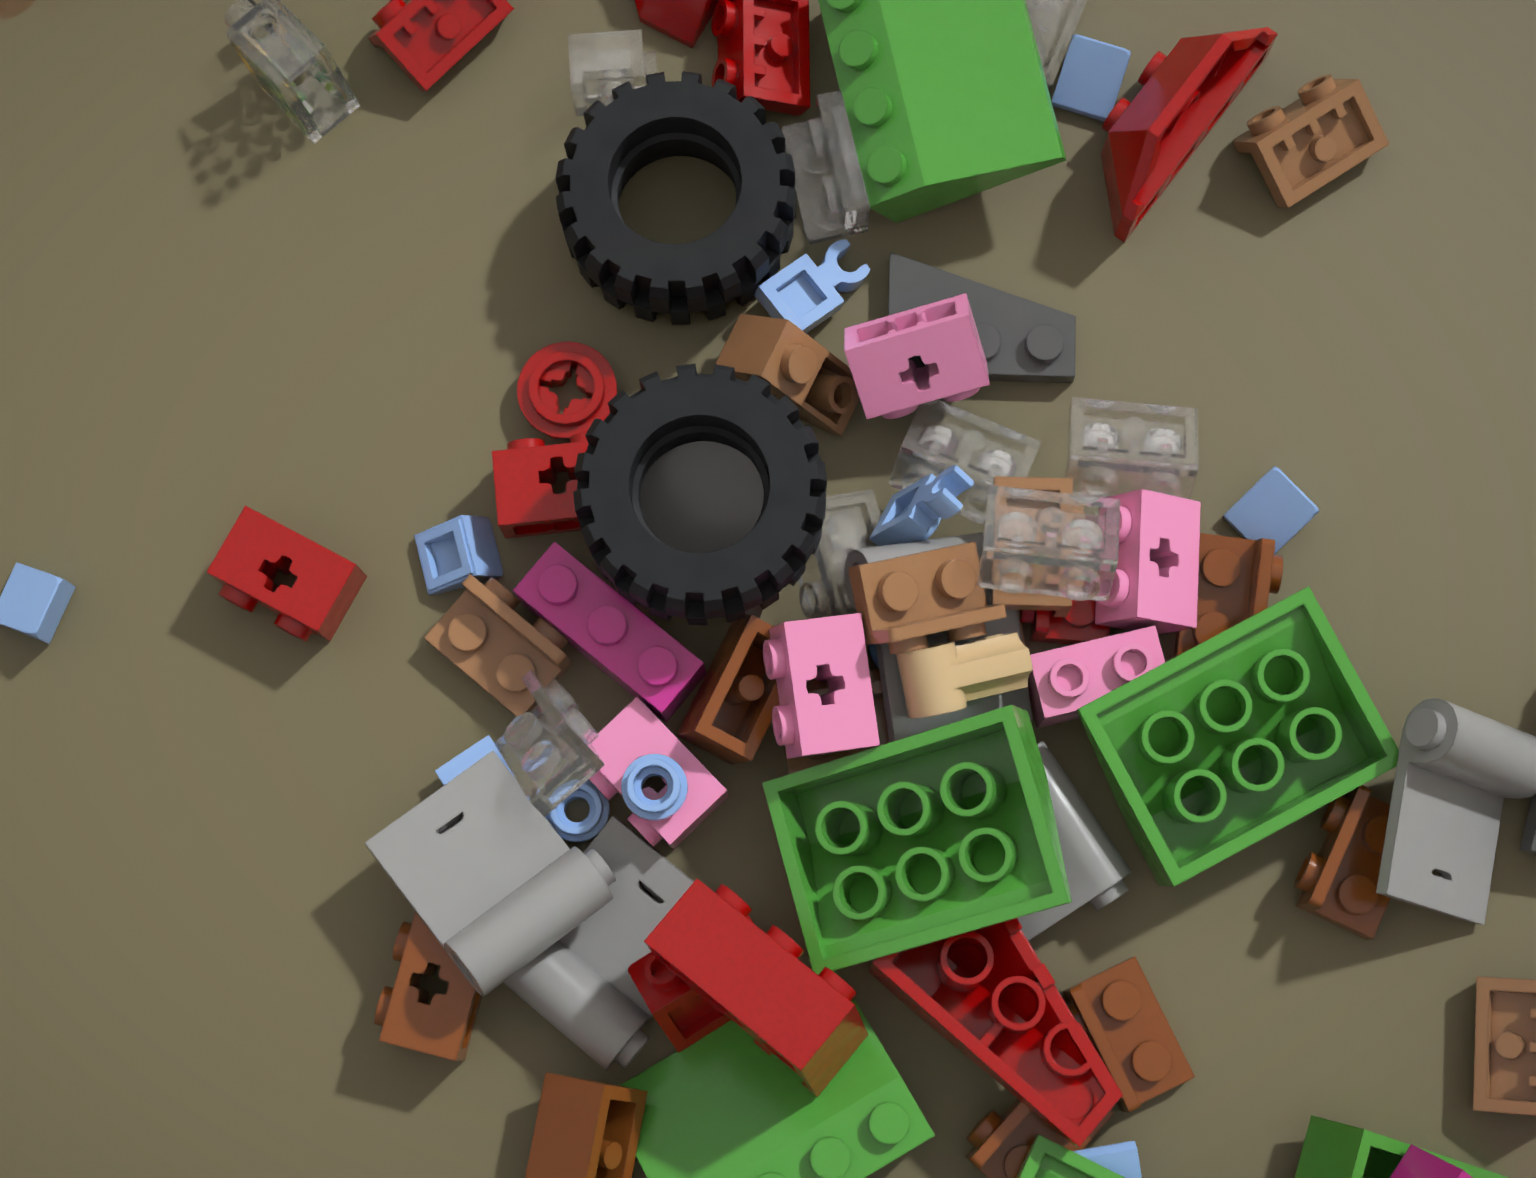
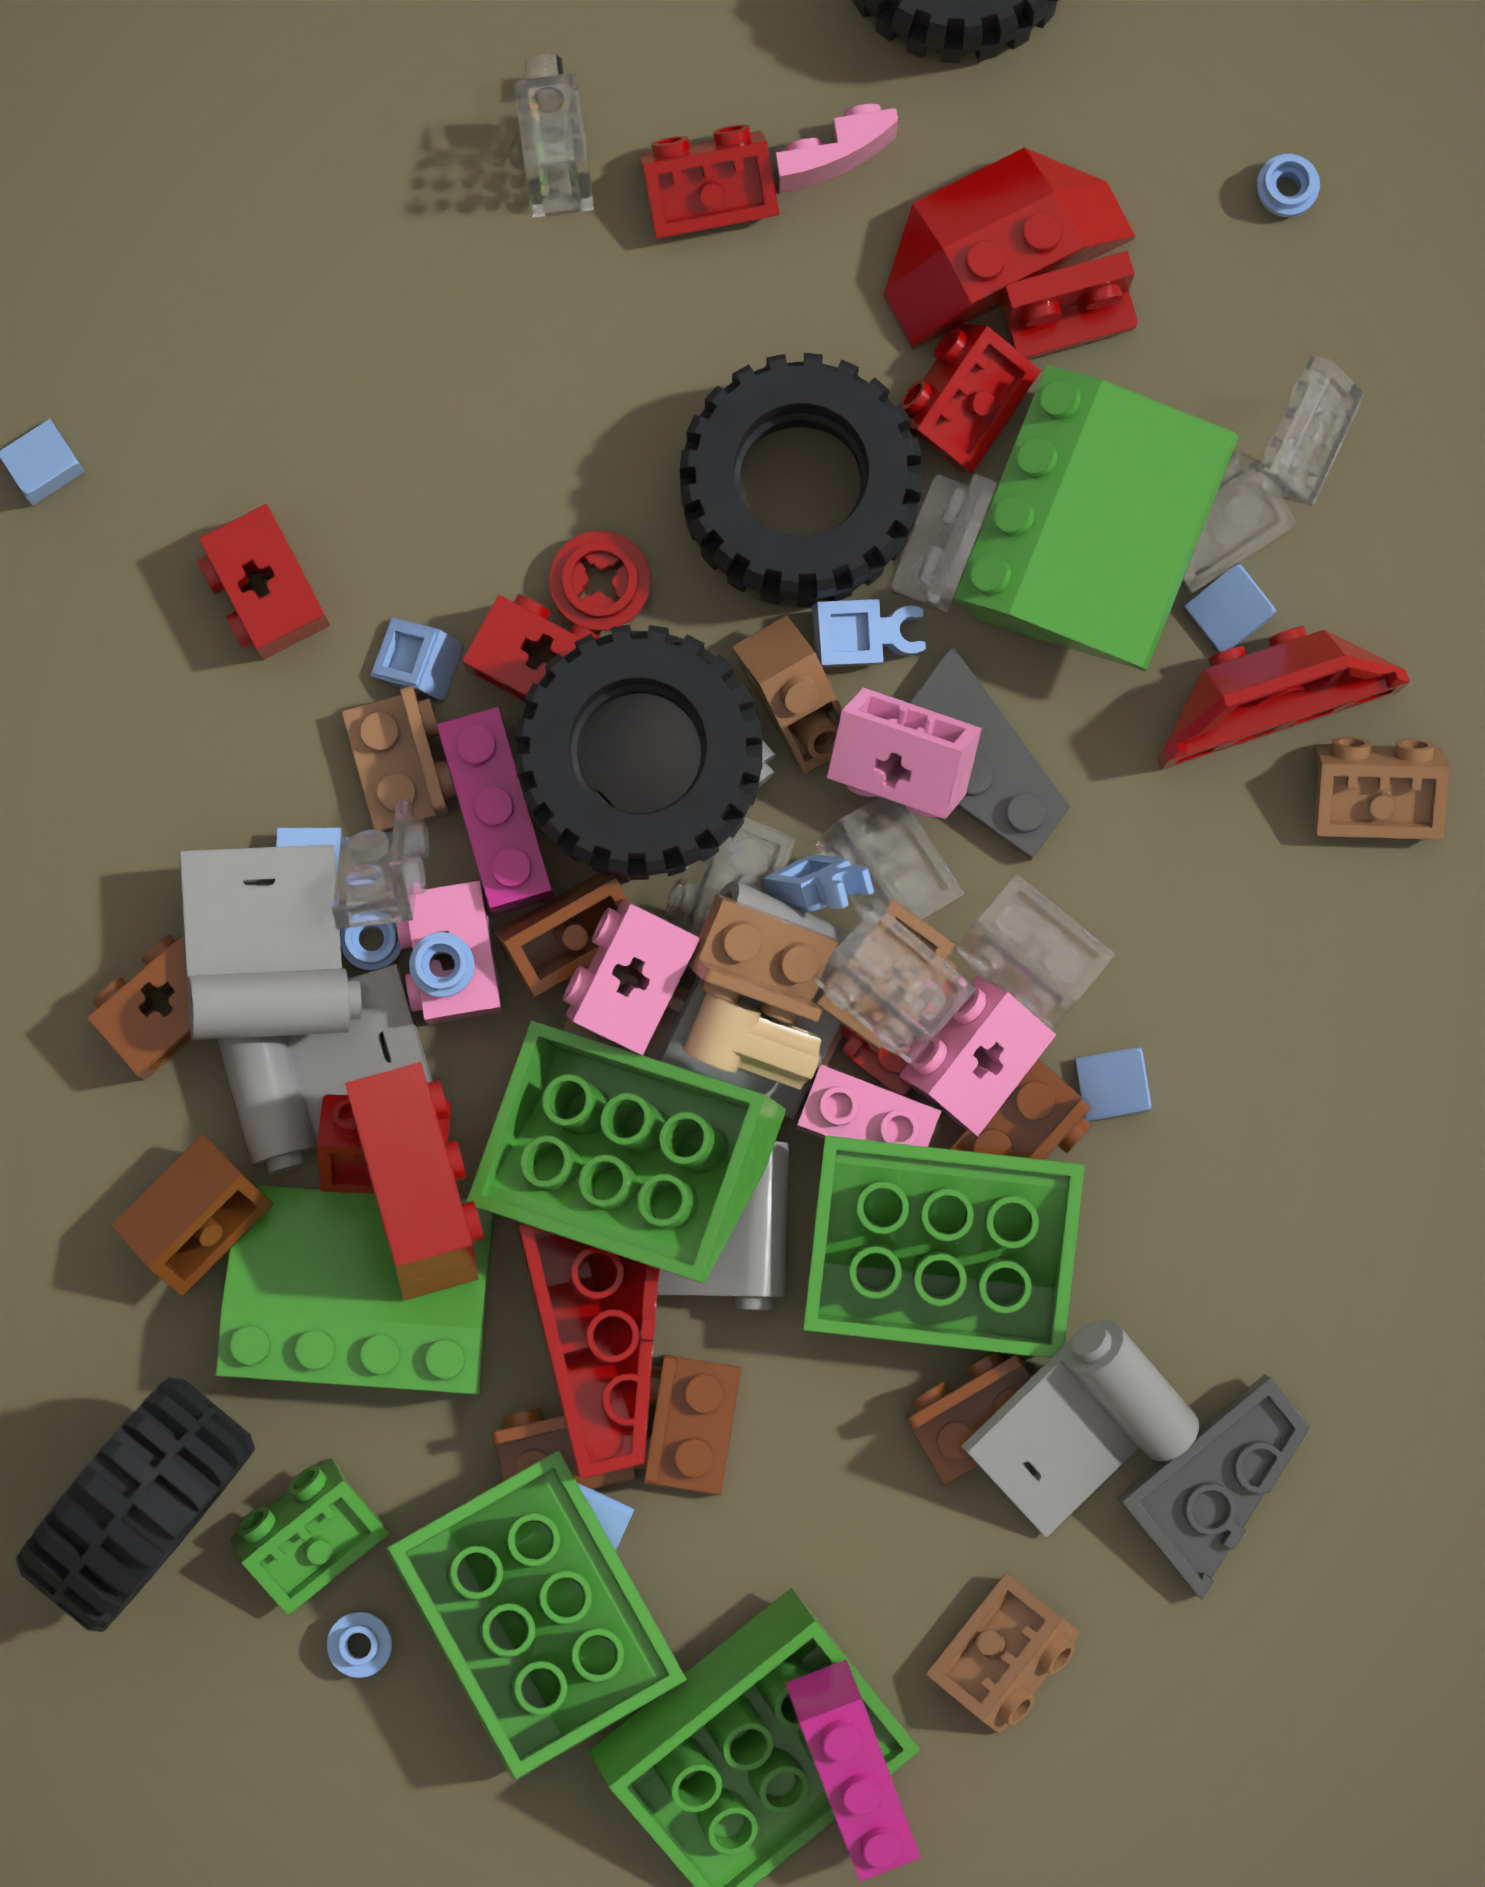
camera: 30 degrees right, 5 degrees up
(604, 62) = (824, 324): clear brick -> none

